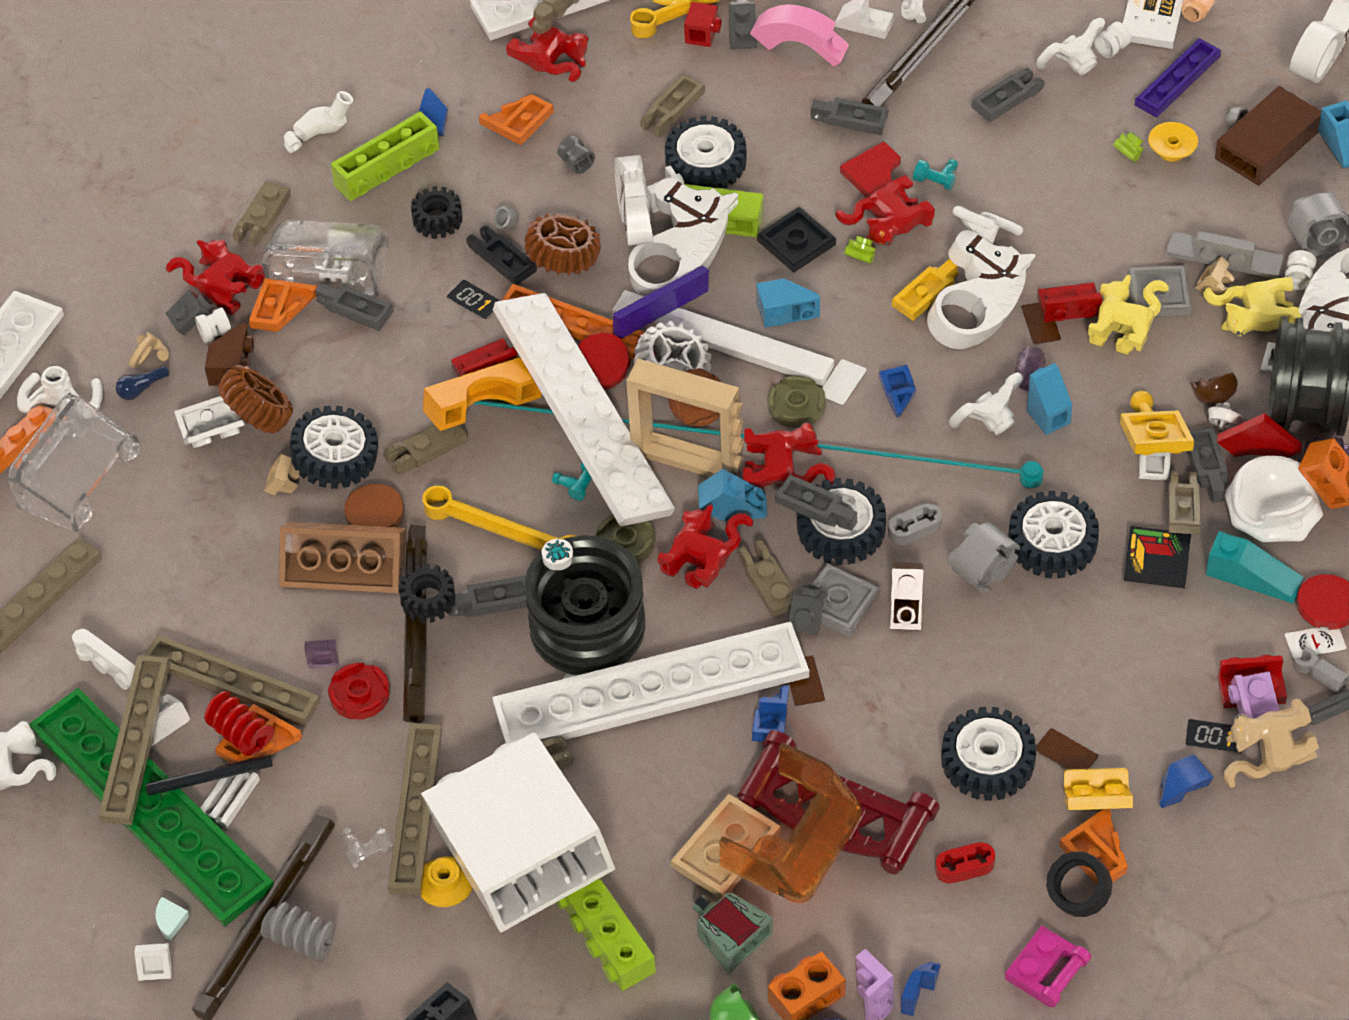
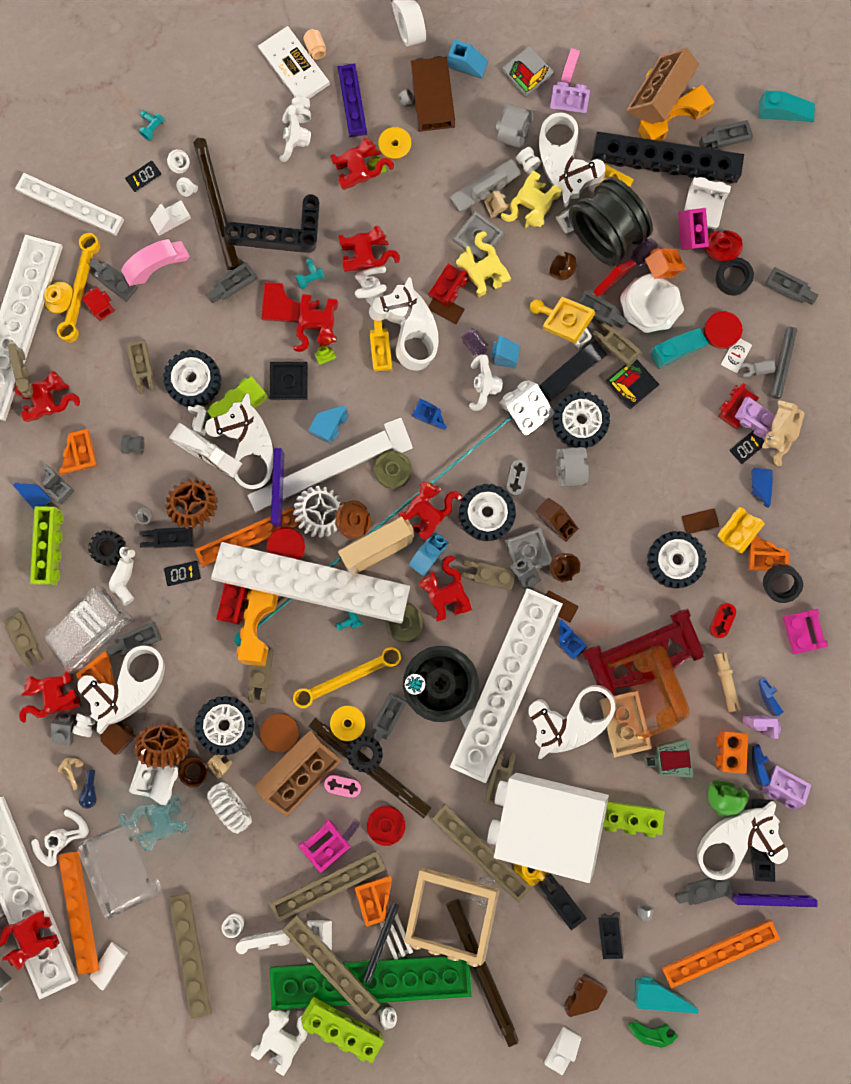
camera: 50 degrees left, 30 degrees up
(64, 807) = (342, 1030): none -> lime brick
(100, 618) = (230, 928): none -> white wheel
(118, 855) = (387, 1017): none -> white plate
(153, 962) = (467, 1045): white tile -> none
(169, 455) = (159, 820): none -> clear light blue animal
(170, 918) = (444, 1018): light aqua tile -> none
(238, 724) = (368, 910): red piece -> none
(240, 510) = (229, 807): none -> white gear
(250, 456) = (193, 772): none -> reddish brown hair
(276, 651) = (327, 852): none -> dark pink plate
(287, 331) = (117, 702): none -> white animal
(298, 932) = (508, 964): light grey piece -> none
(326, 856) = (462, 885): none -> tan window
(373, 611) = (341, 790): none -> bright pink beam
(419, 244) = (122, 575): none -> white arm
(431, 942) = (563, 904): none -> black hinge
(452, 552) = (338, 726): none -> yellow piece
(462, 126) = (56, 485): none -> dark grey slope
(667, 788) = (563, 733): none -> white animal
(815, 503) = (475, 521): dark grey hinge -> none
(855, 639) = (564, 567): none -> reddish brown hair
(900, 911) = (727, 681): none -> tan pin
(950, 120) = (279, 233): none -> black beam
(1007, 94) = (289, 195): dark grey hinge -> none
(1009, 471) = (527, 406): none -> white bracket
(1018, 195) = (364, 257): none -> red animal
(1107, 121) = (354, 160): none -> red animal
(1107, 482) = (572, 370): none -> black slope
(1224, 416) = (583, 278): white hat -> none

